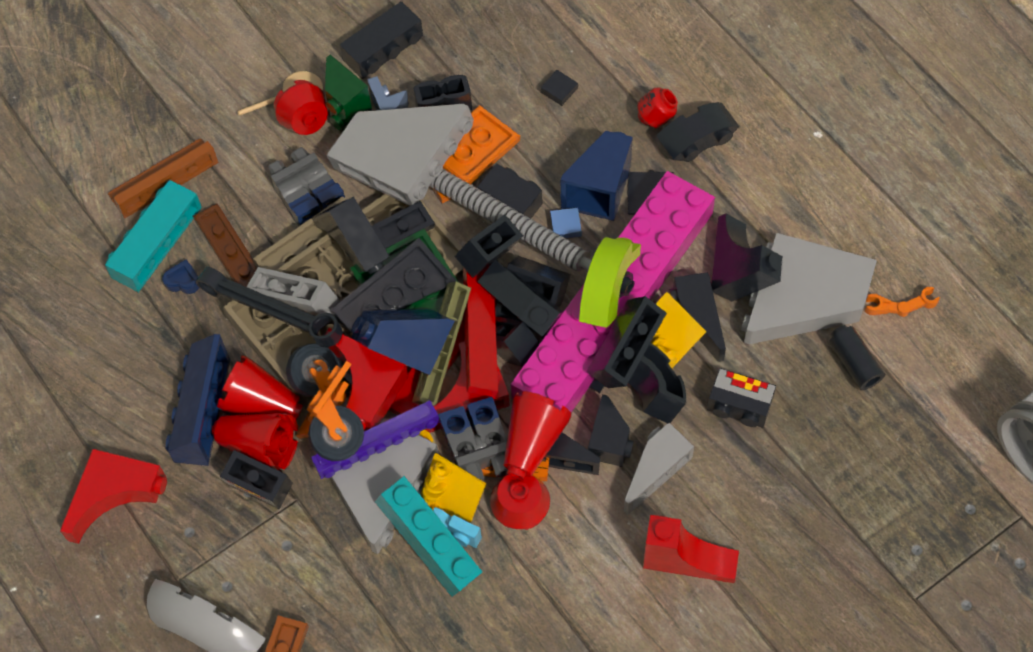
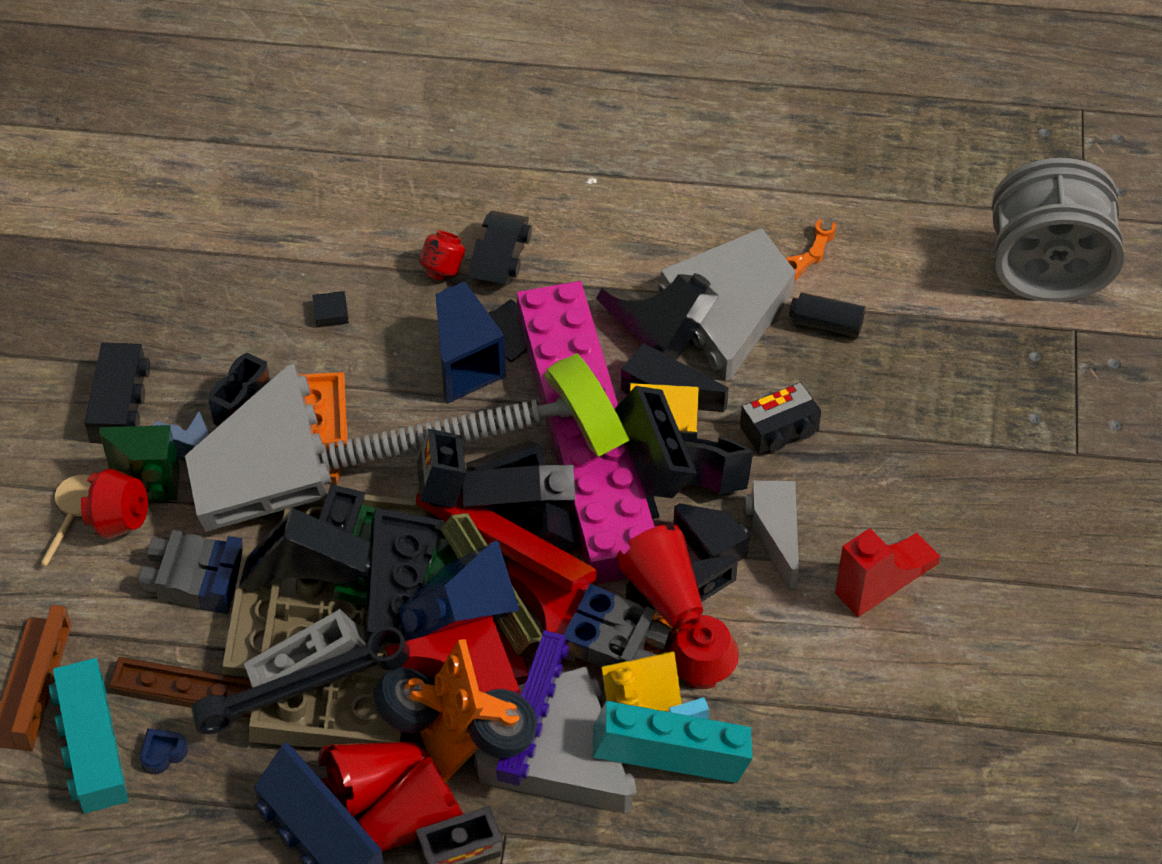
camera: 50 degrees left, 10 degrees down
(512, 190) = (394, 414): black brick -> none
(566, 222) = (468, 403): medium blue tile -> none

